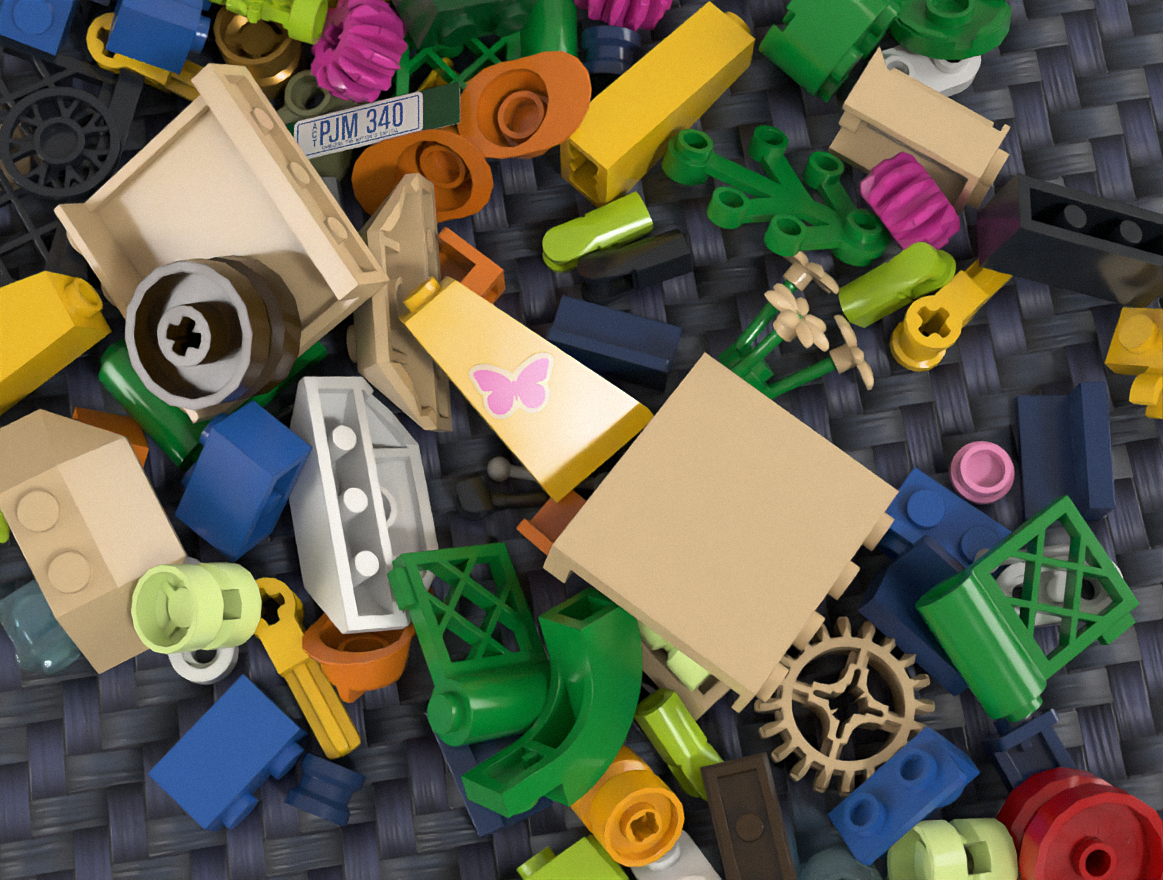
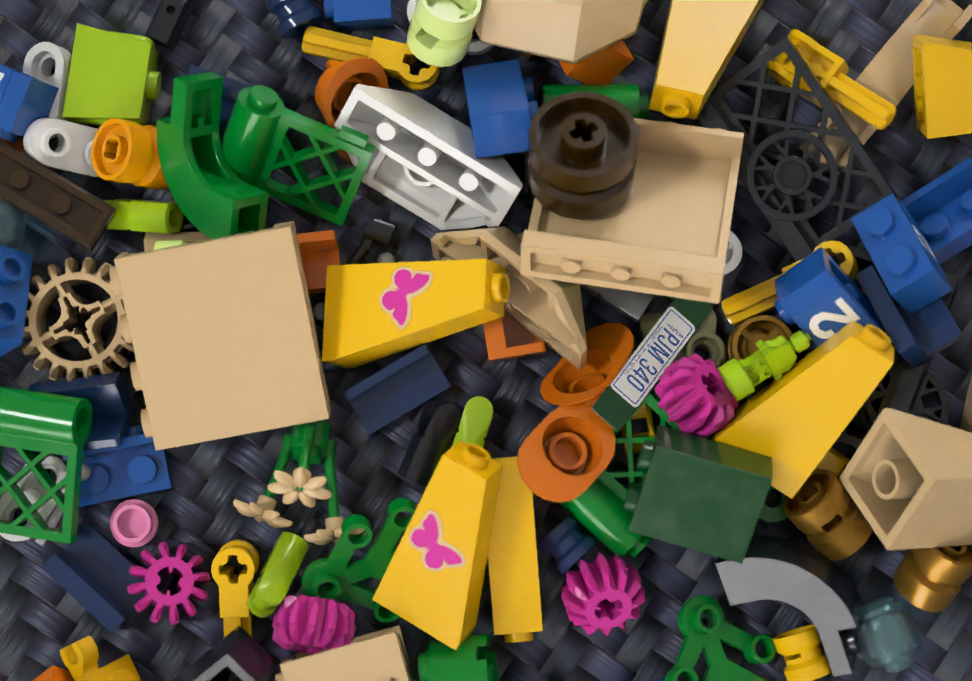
camera: 135 degrees right, 10 degrees up
(732, 132) = (444, 551): none -> yellow slope
(1027, 389) = (152, 580): none -> dark pink gear

